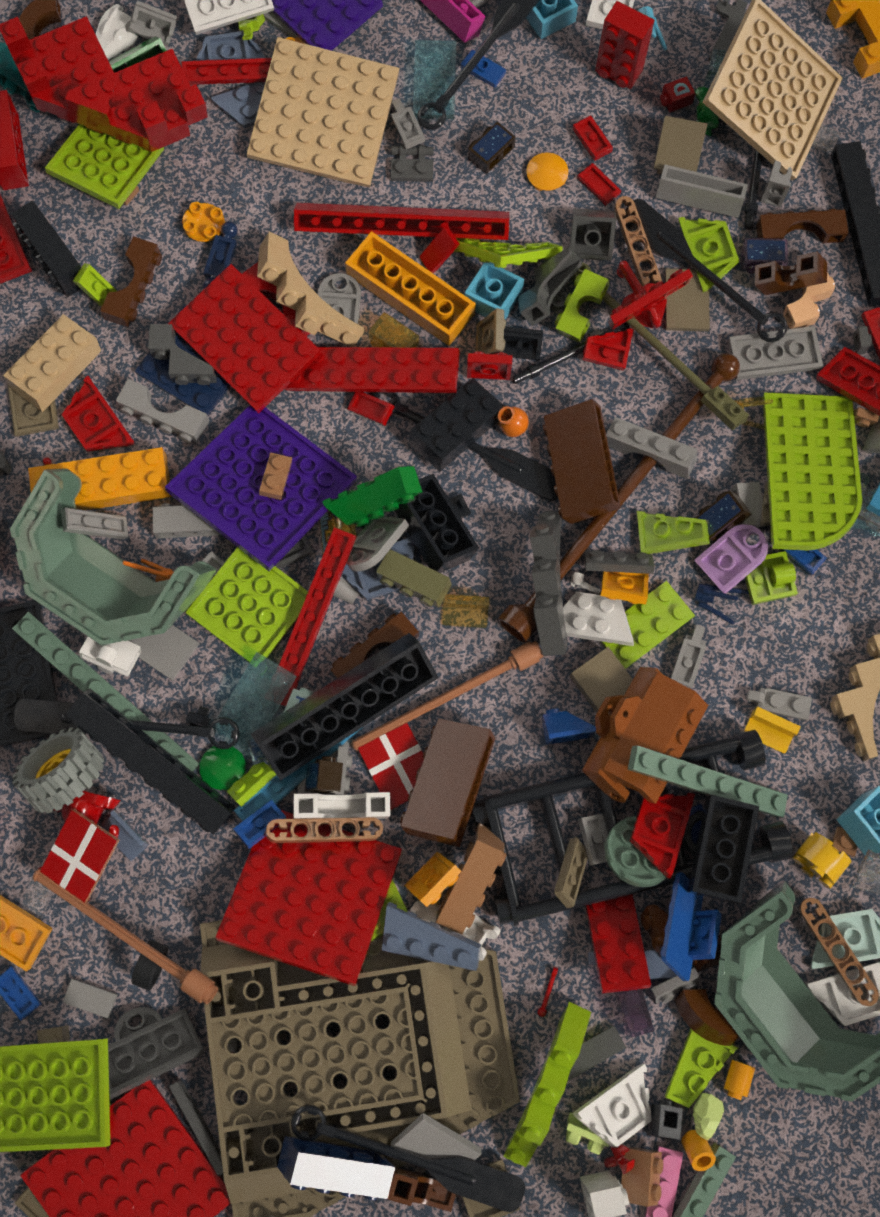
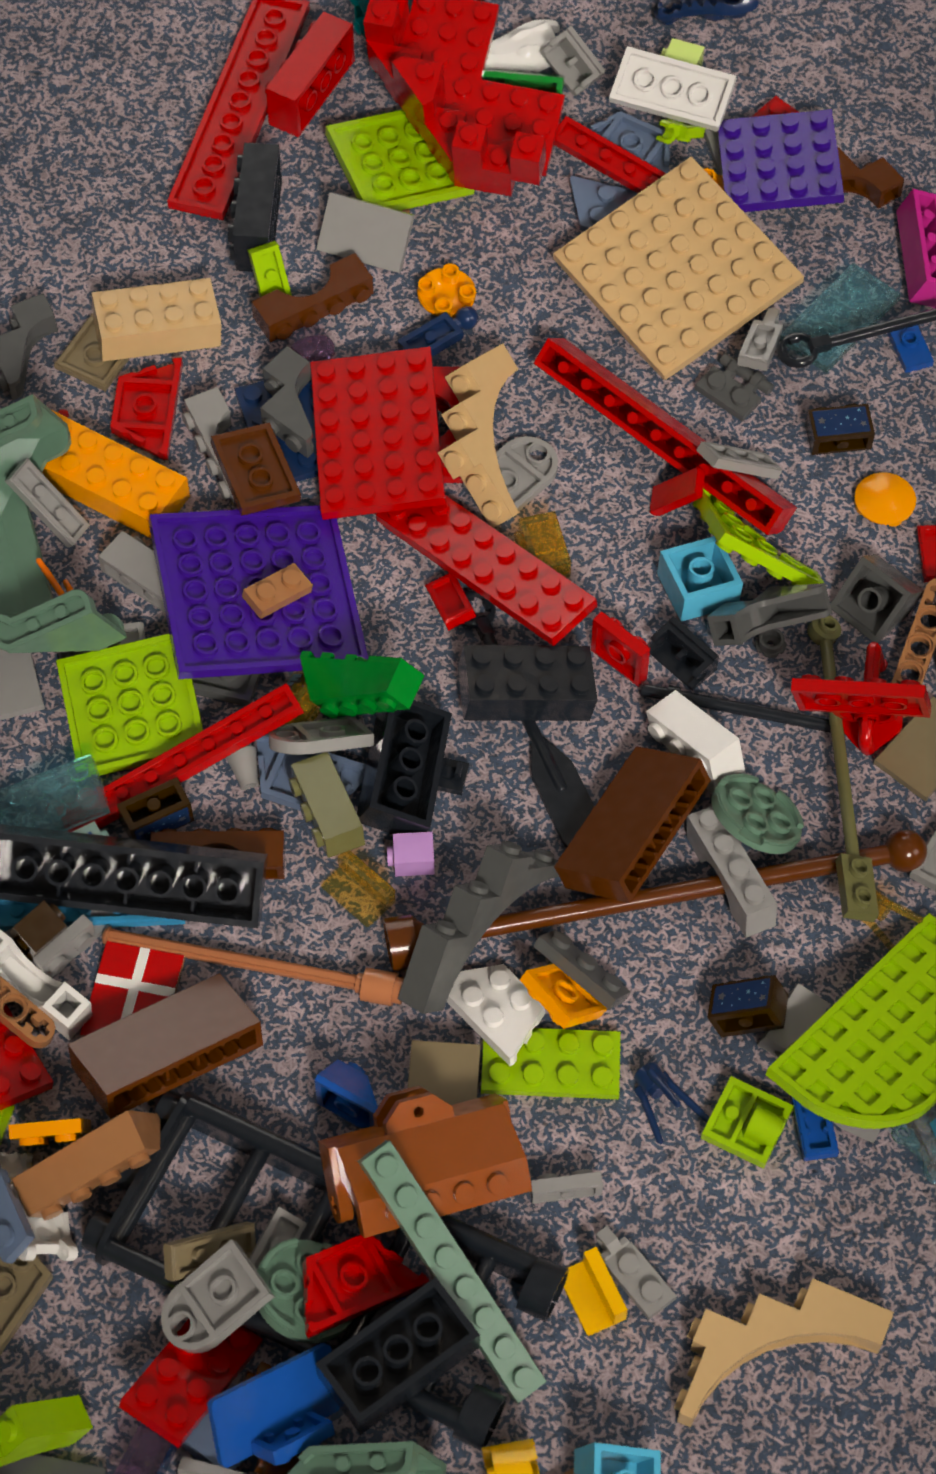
camera: 40 degrees right, 15 degrees down
(126, 217) = (365, 228): none -> light grey tile
(163, 313) = (322, 344): none -> clear purple gear
(198, 412) = (255, 469): none -> reddish brown plate
(321, 656) = (156, 810): none -> dark brown brick
(410, 288) = (608, 510): light orange brick -> none
(458, 206) = (739, 460): none -> light grey tile
(477, 569) = (412, 854): none -> lavender brick
(491, 333) = (656, 614): dark tan plate -> none
(512, 421) = (596, 726): orange piece -> none
(542, 1010) = (42, 1386): red hinge -> none
(570, 387) = (695, 734): none -> white wedge
(578, 578) = (518, 953): white hand -> none
(588, 288) = (809, 646): lime arch -> none
(603, 896) = (215, 1299): none -> light grey tile
(609, 349) = (782, 733): red wing -> none
(638, 405) = (757, 814): none -> sand green tile
(668, 533) = (668, 979): lime wing -> none
(689, 658) = (568, 1137): light grey hinge -> none
(717, 677) = (577, 1185): none -> light grey plate
(732, 558) = (720, 1061): lavender plate -> none

